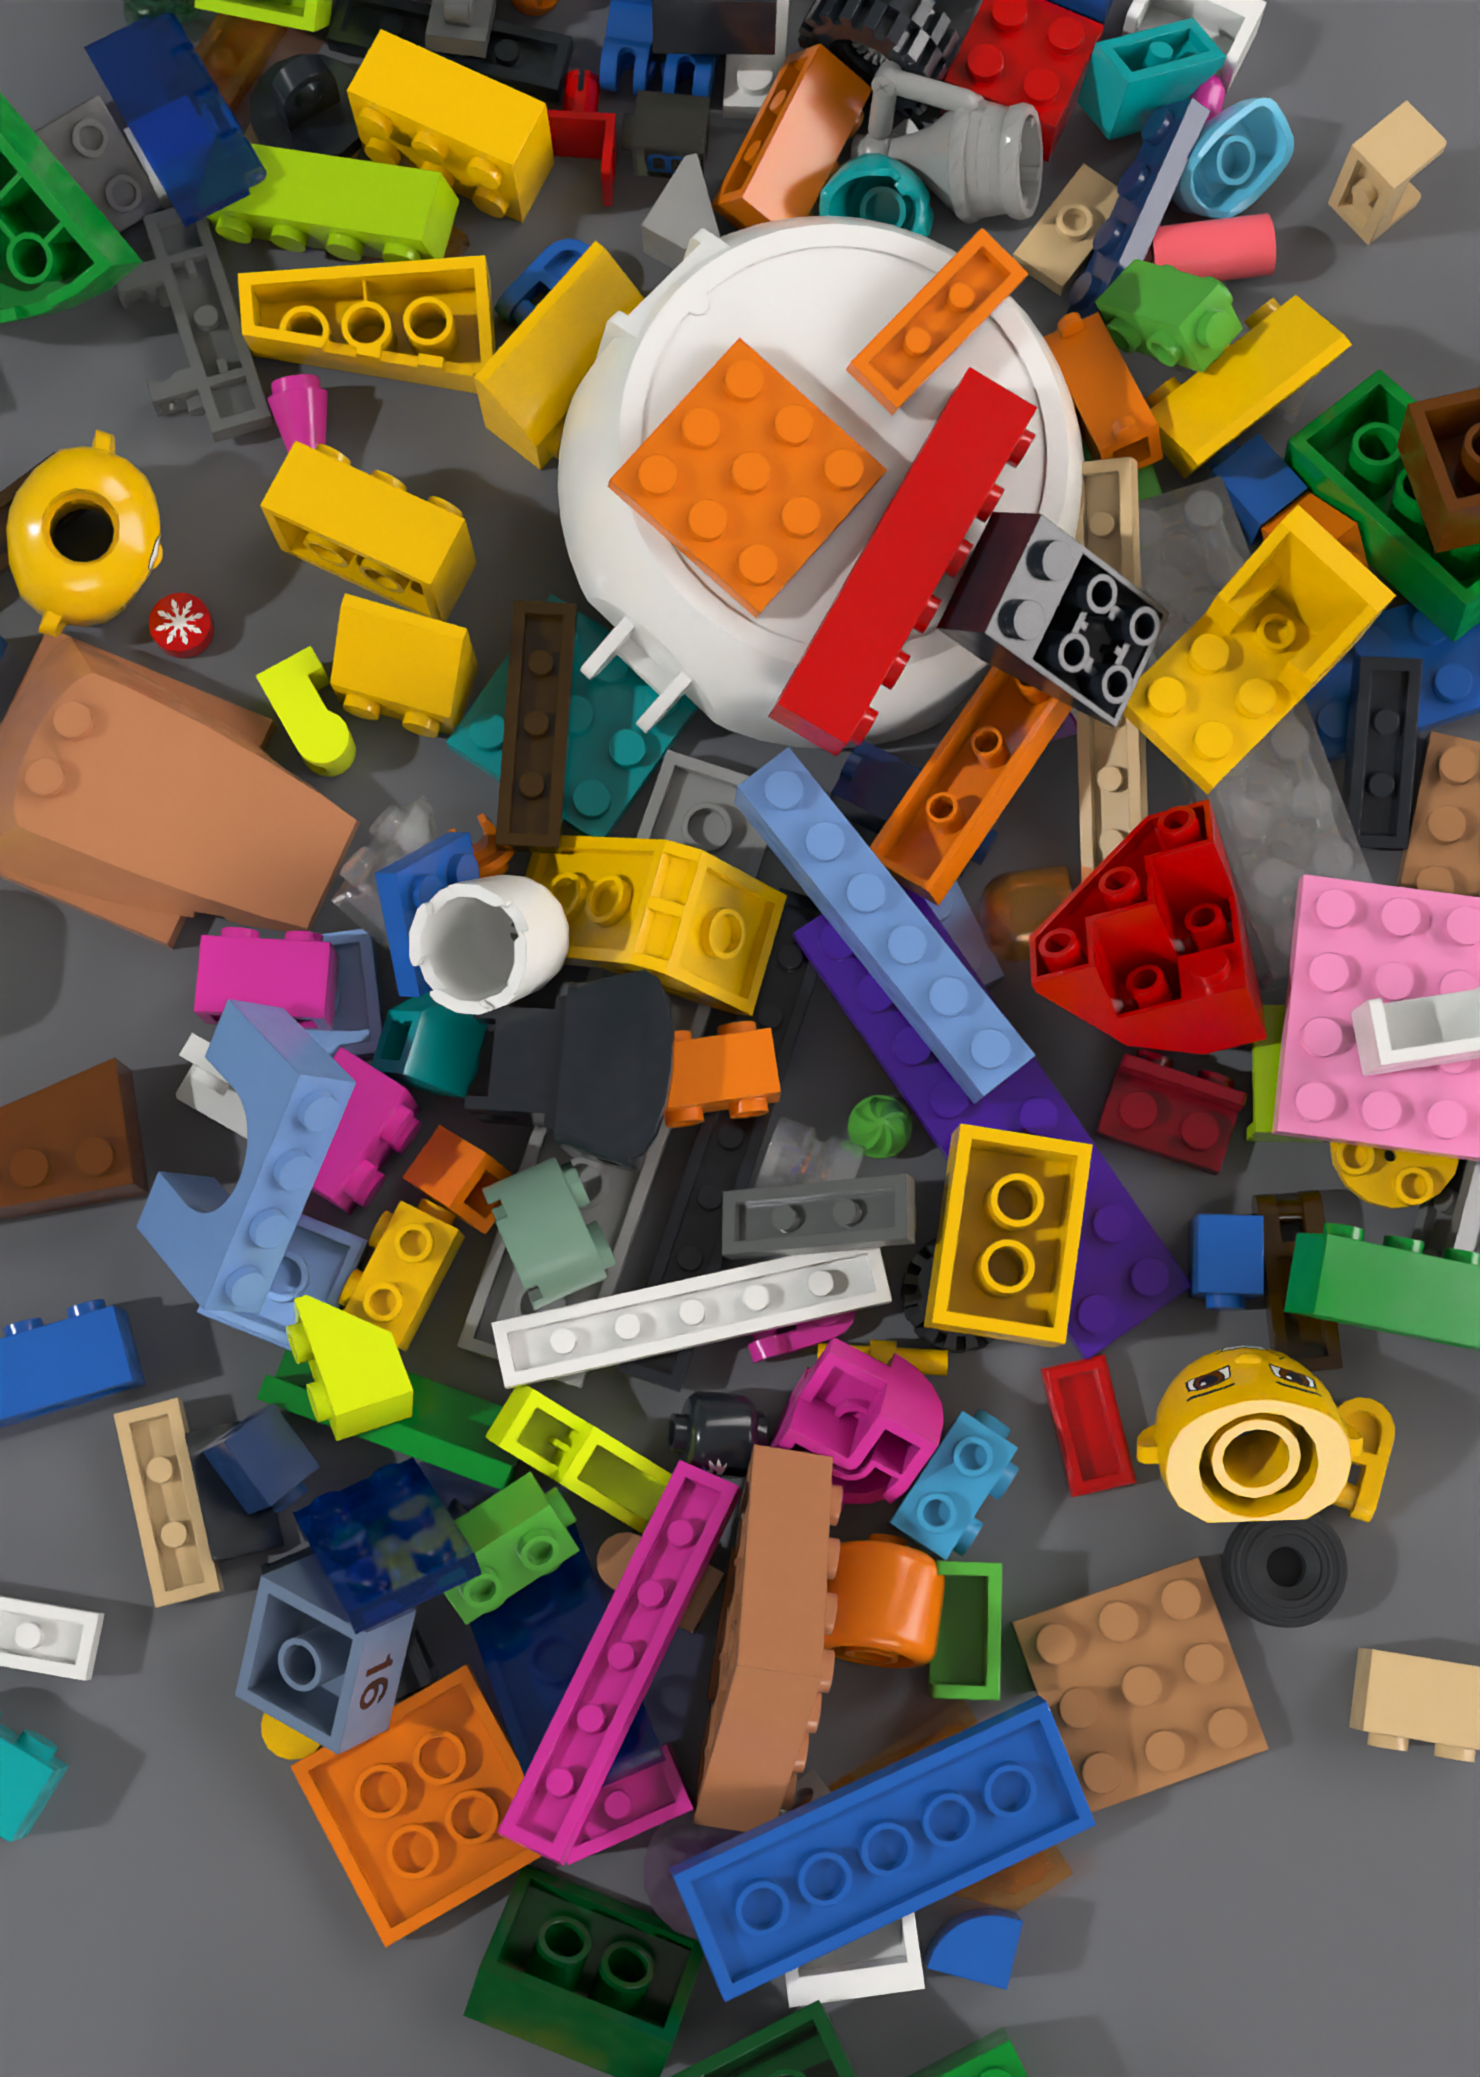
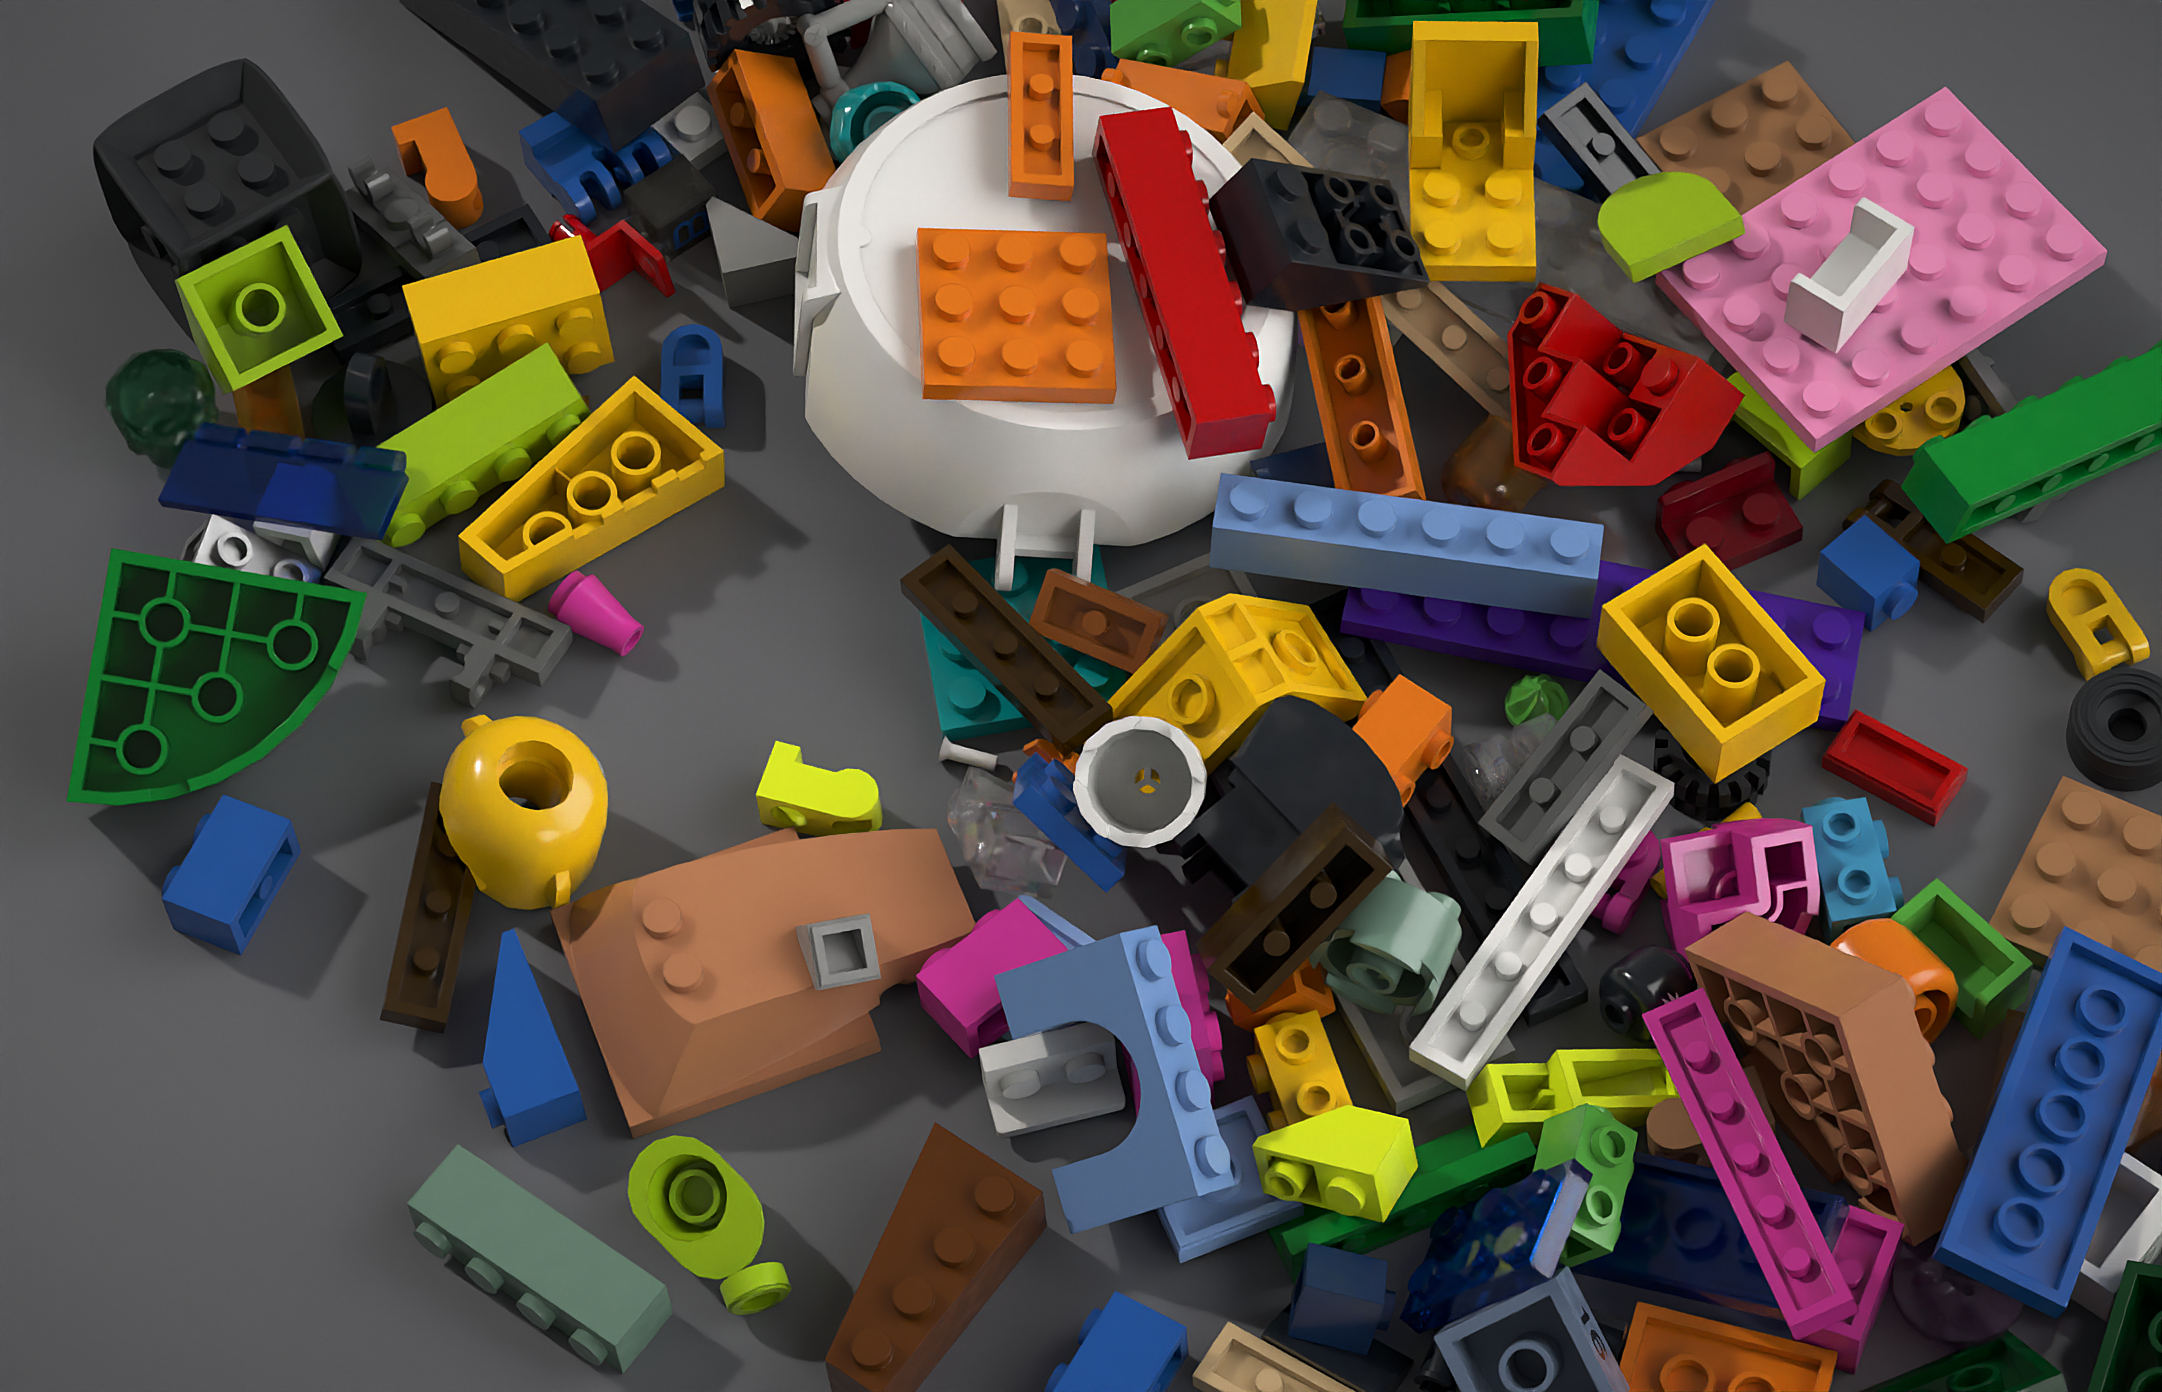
camera: 40 degrees left, 20 degrees down
(173, 860) = (839, 951): none -> light grey slope
(181, 625) = (650, 827): red tile -> none
(370, 530) = (742, 629): yellow brick -> none
(402, 666) = (860, 694): yellow slope -> none
(429, 1047) = (1156, 894): teal slope -> none
(448, 776) = (967, 755): none -> white piece
(487, 1153) = (1293, 906): none -> dark brown brick
(540, 366) = (762, 408): yellow slope -> none
(620, 767) = (1097, 621): none -> dark orange plate
(1278, 1472) = (2054, 639): yellow piece -> none
(1348, 841) = (1665, 222): none -> lime tile

